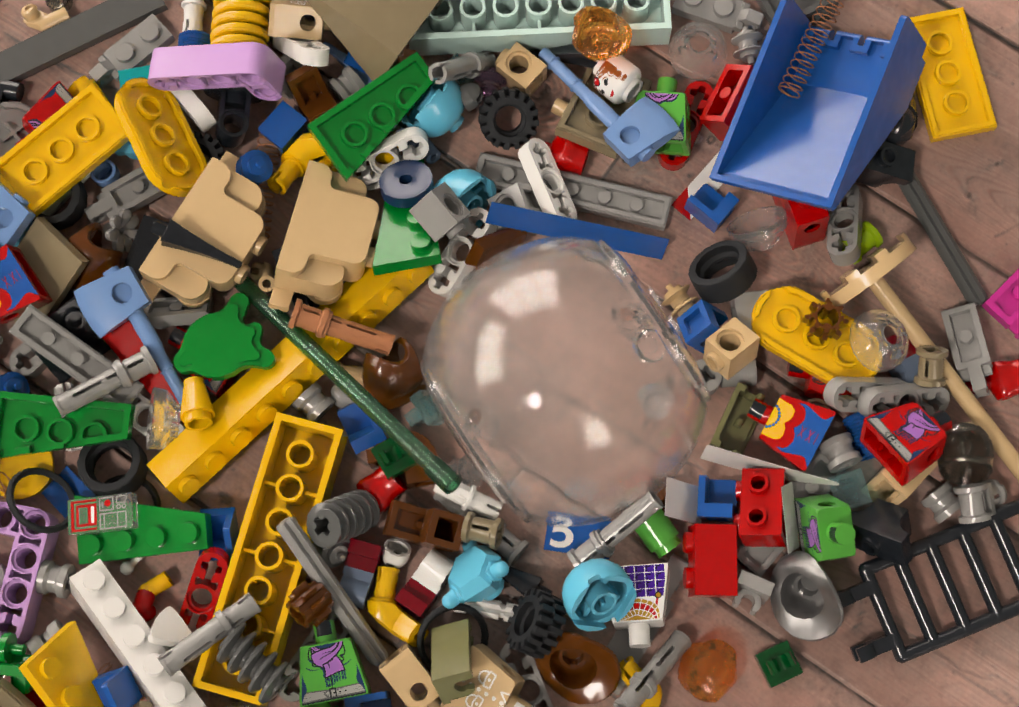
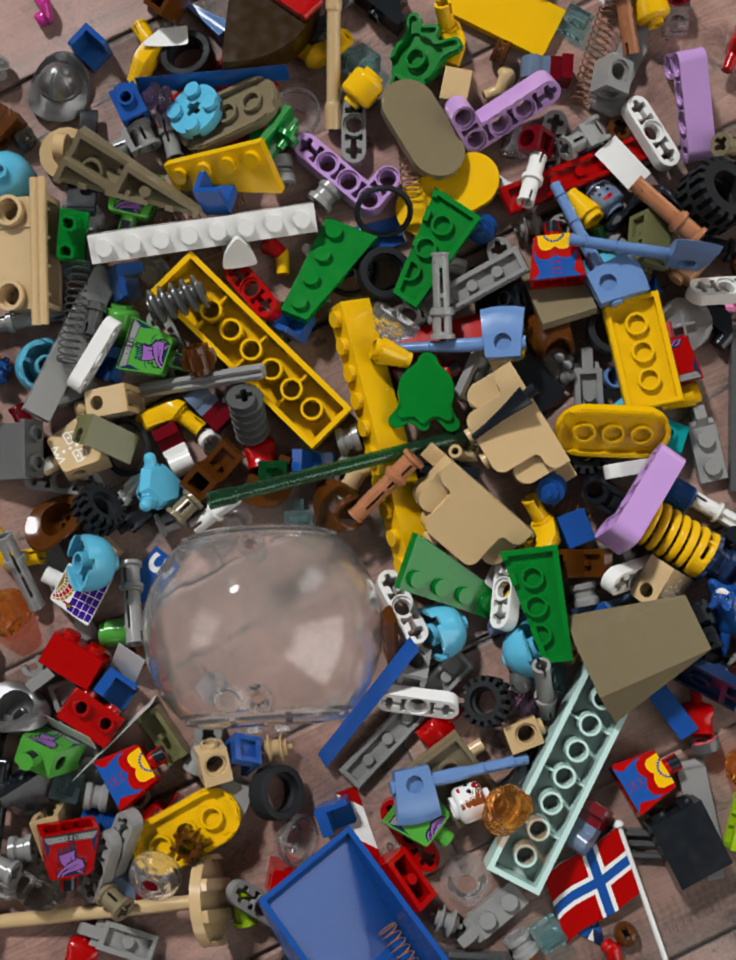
camera: 115 degrees right, 10 degrees up
(102, 514) = (348, 249): clear tile -> none
(209, 634) = (216, 292): light grey pin -> none
(405, 183) = (462, 595): piece -> none
(440, 213) = (431, 607): light grey brick -> none

